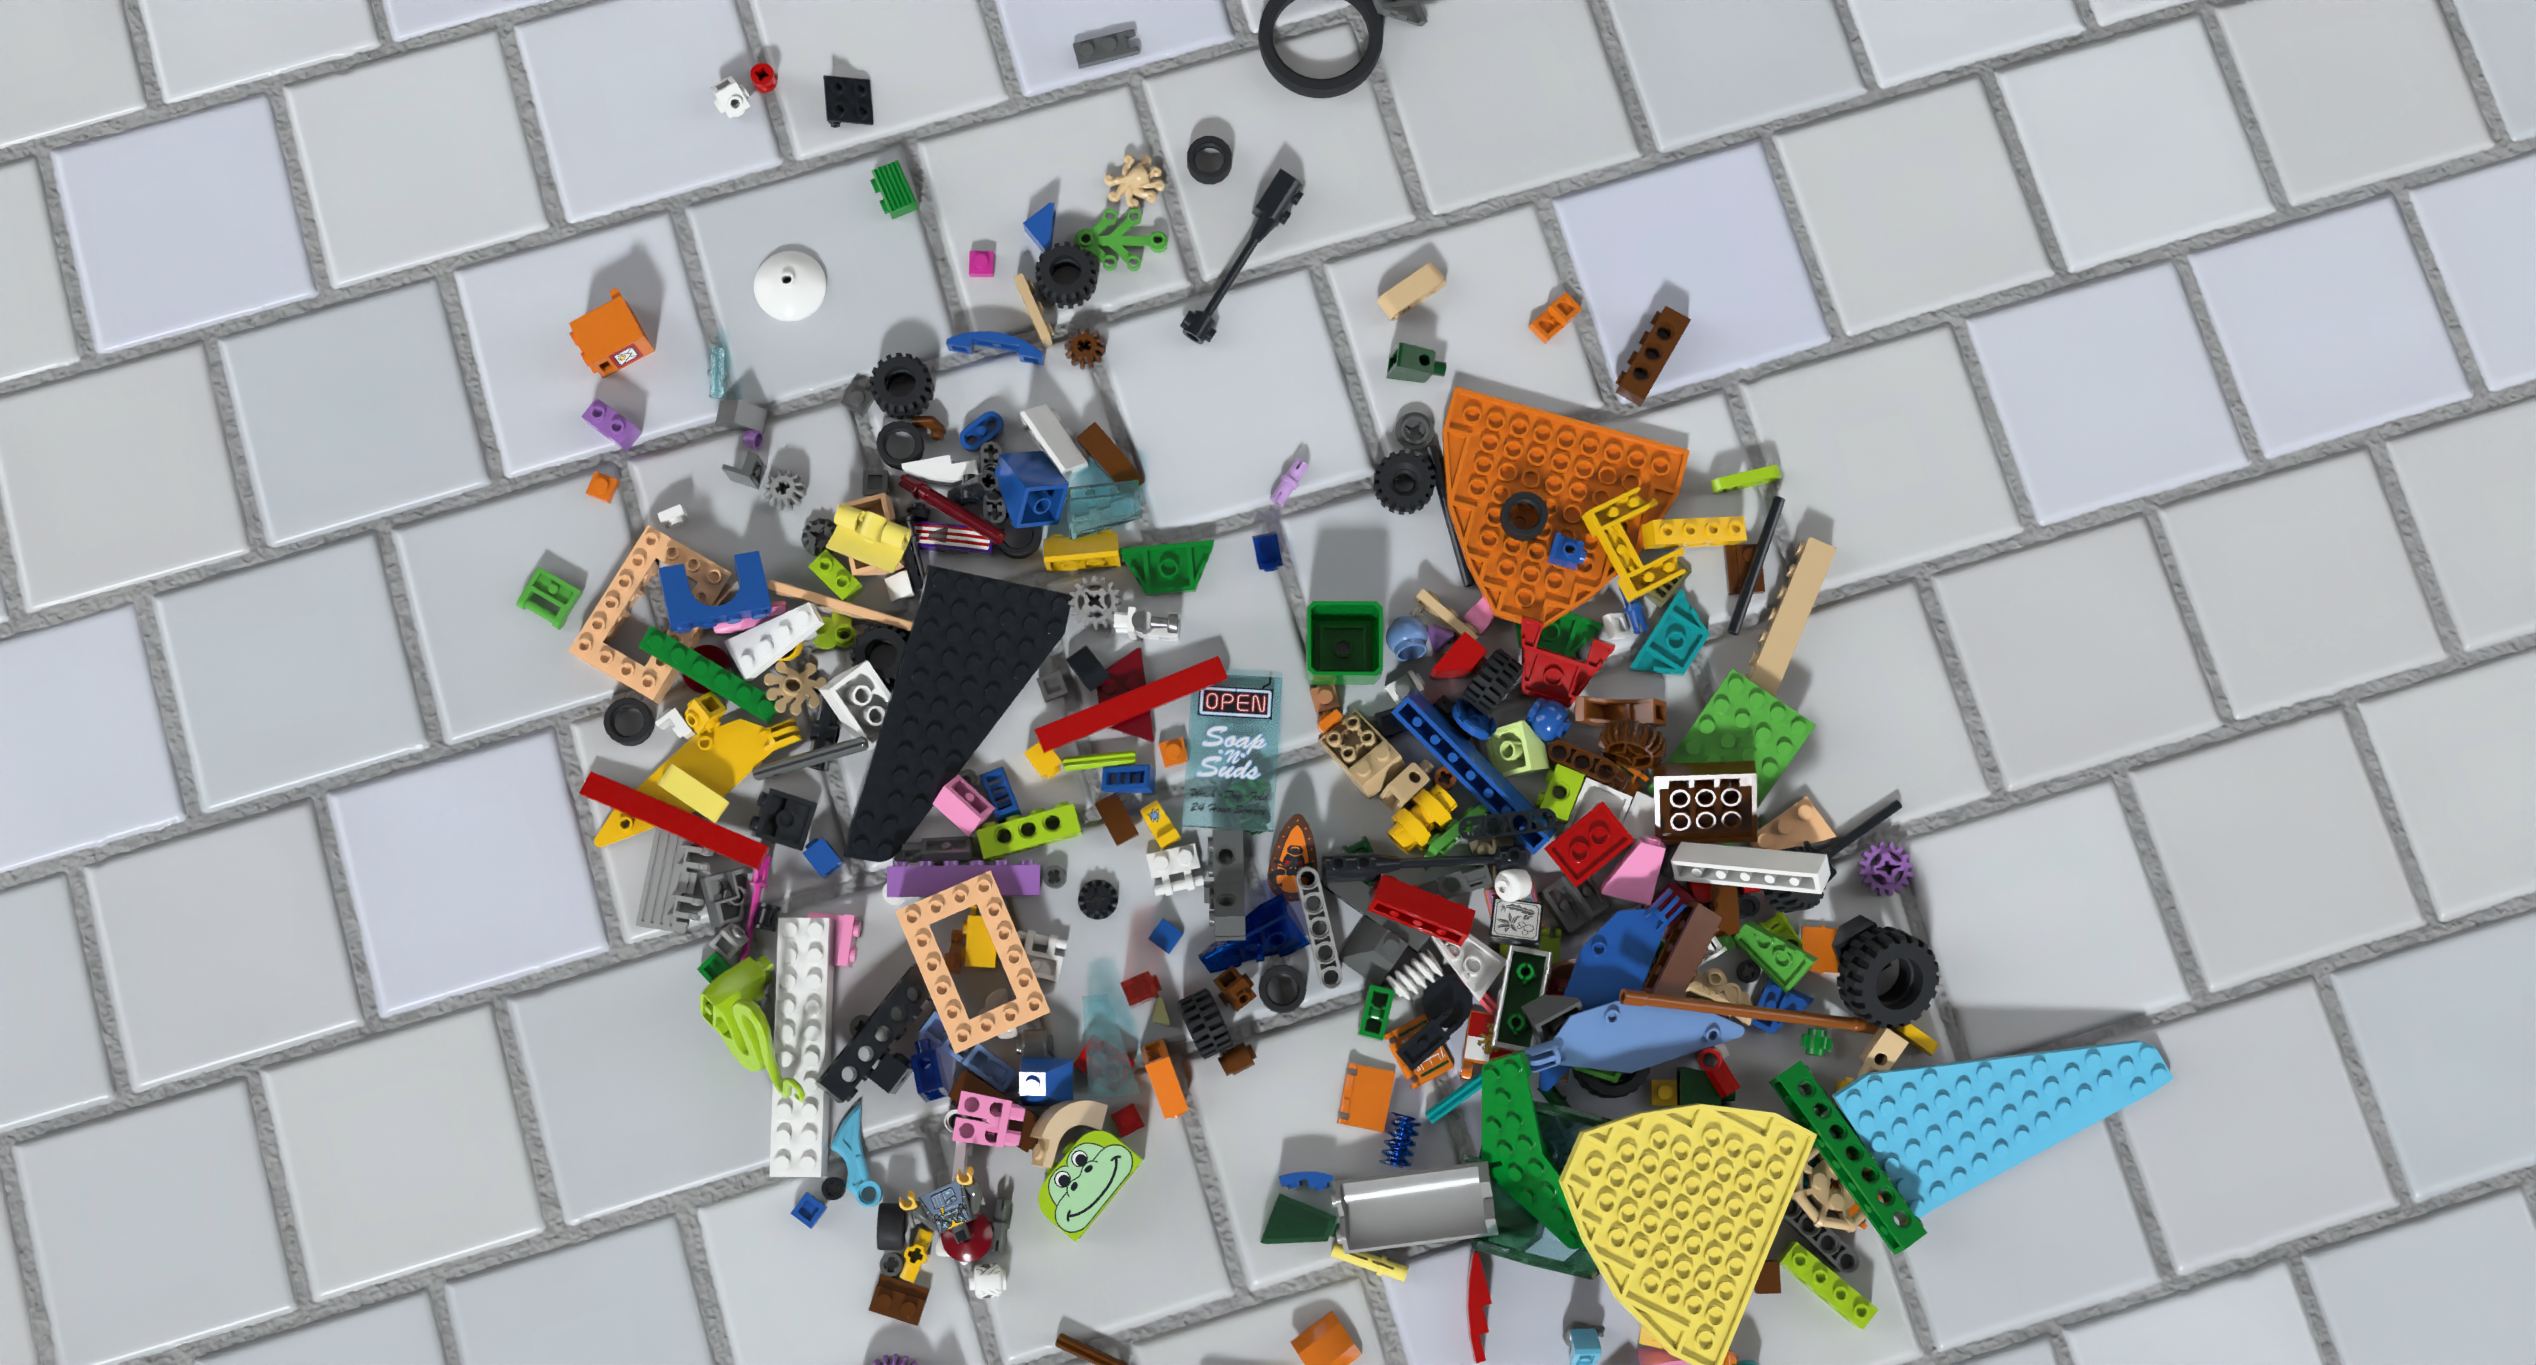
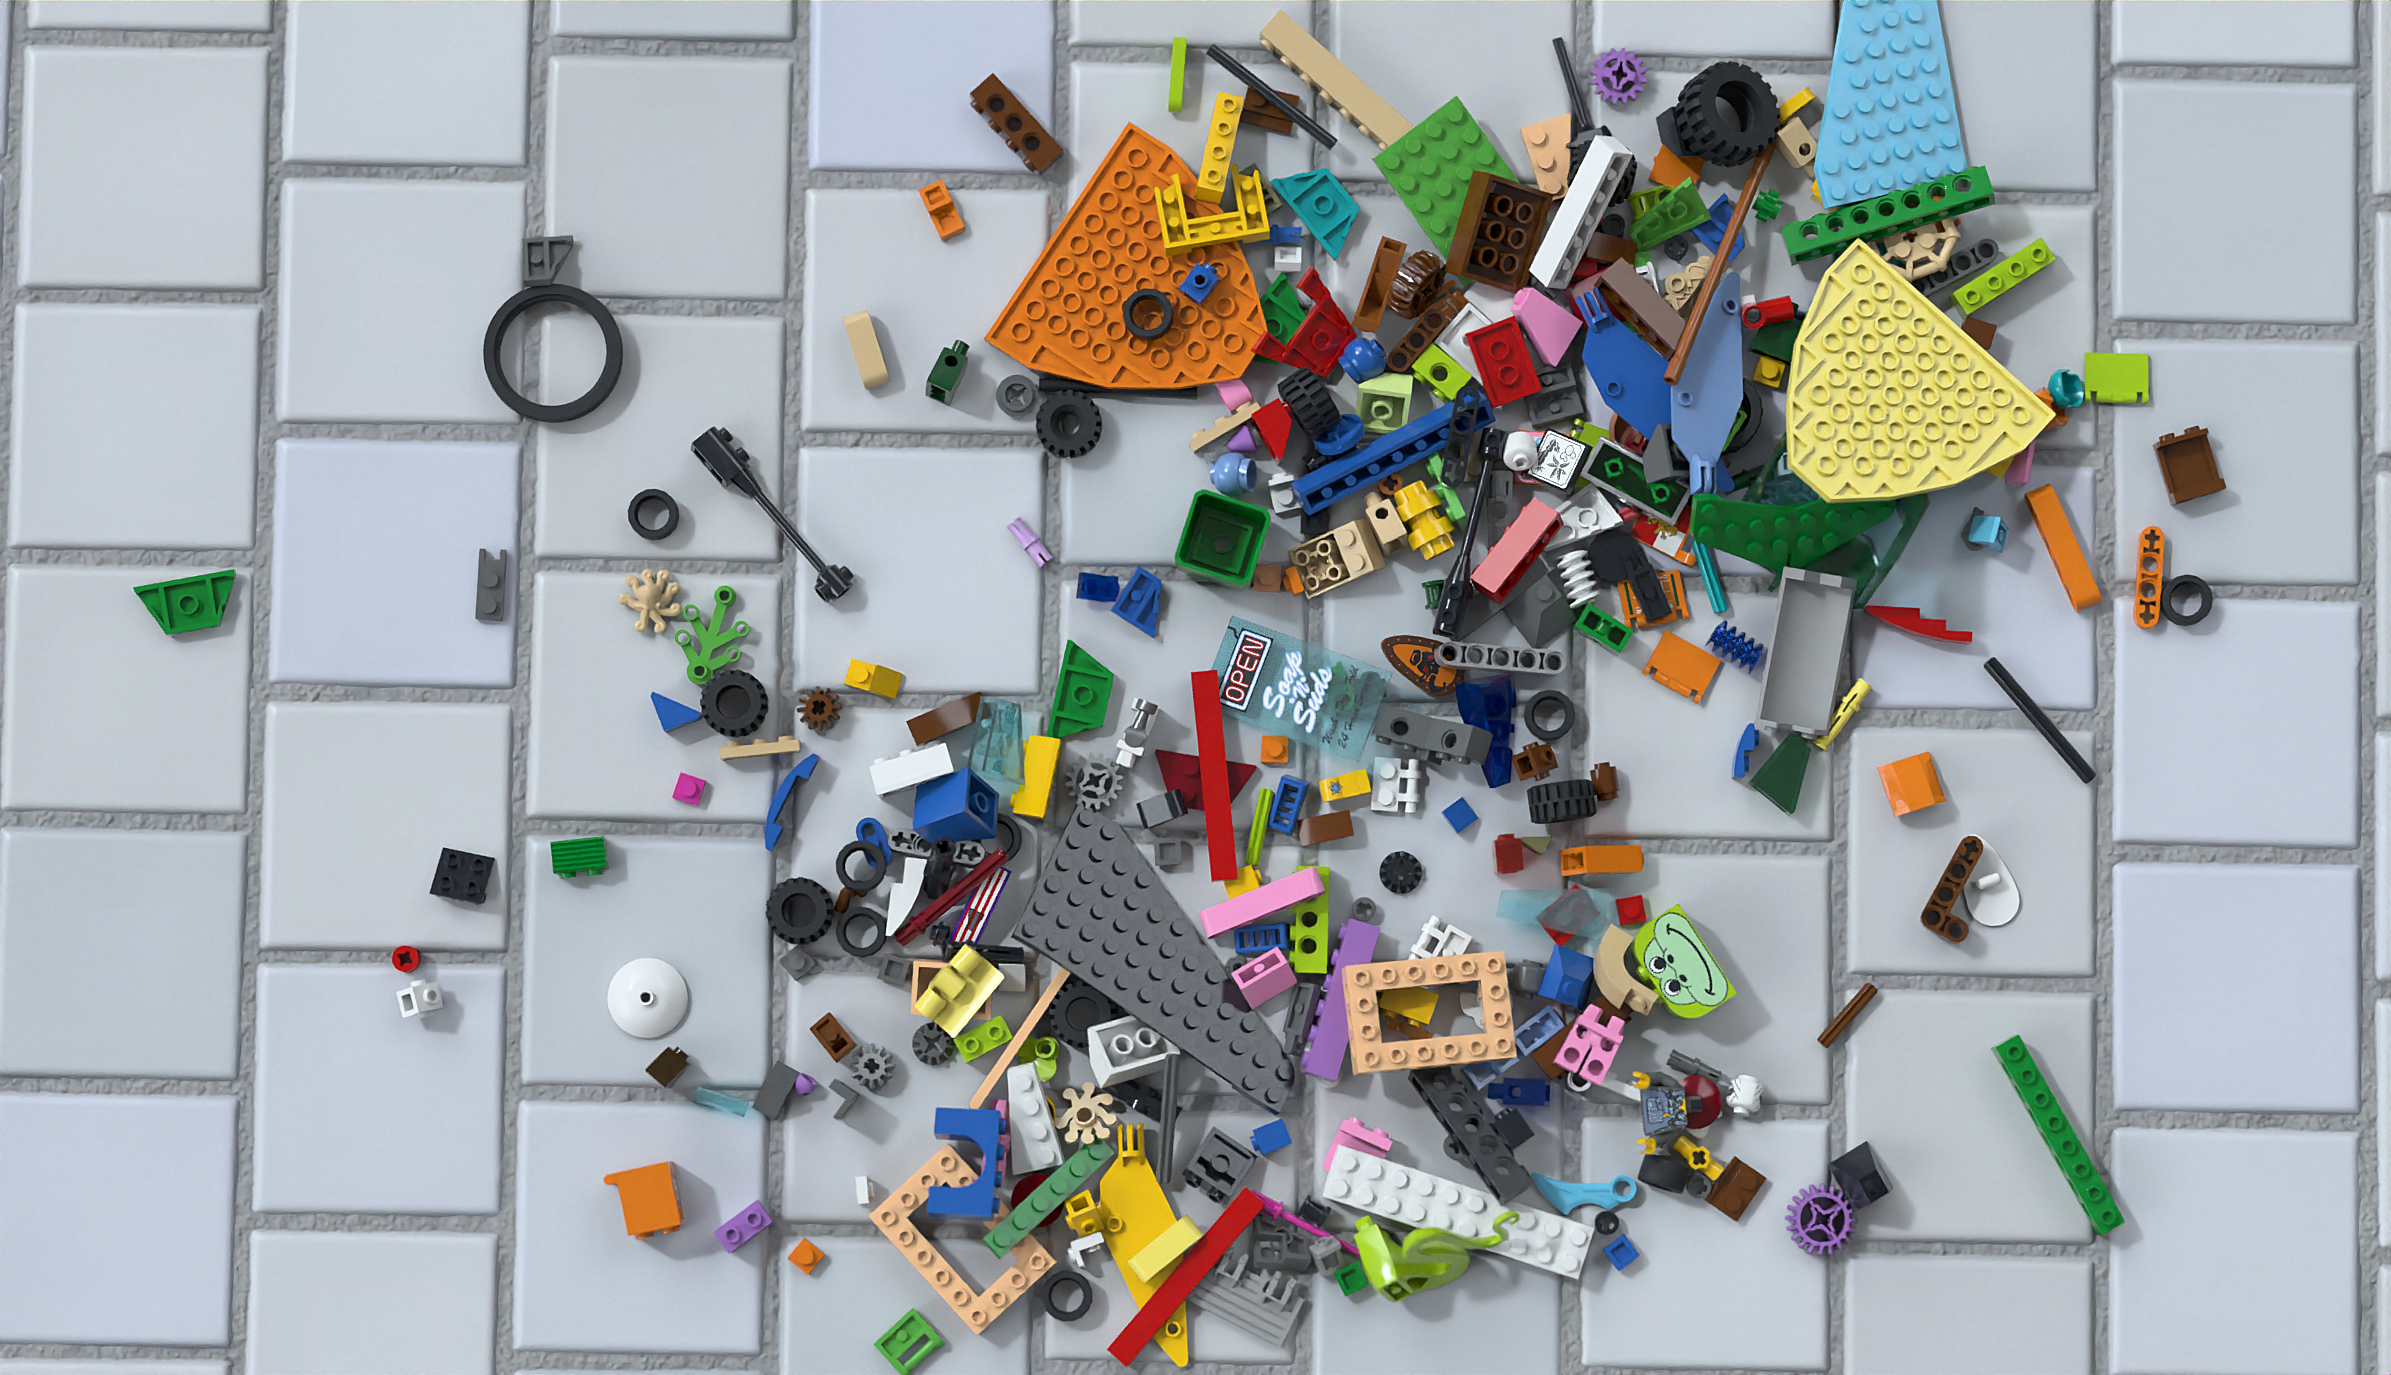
camera: 70 degrees left, 5 degrees up
(730, 317) = (668, 1066): none -> dark brown slope
(799, 449) = (833, 1037): none -> reddish brown slope
(955, 404) = (861, 846): none -> black tyre
(1030, 781) = (1262, 902): none -> bright pink beam
(1126, 387) = (873, 678): none -> yellow slope
(1267, 593) = (1139, 601): none -> blue wing

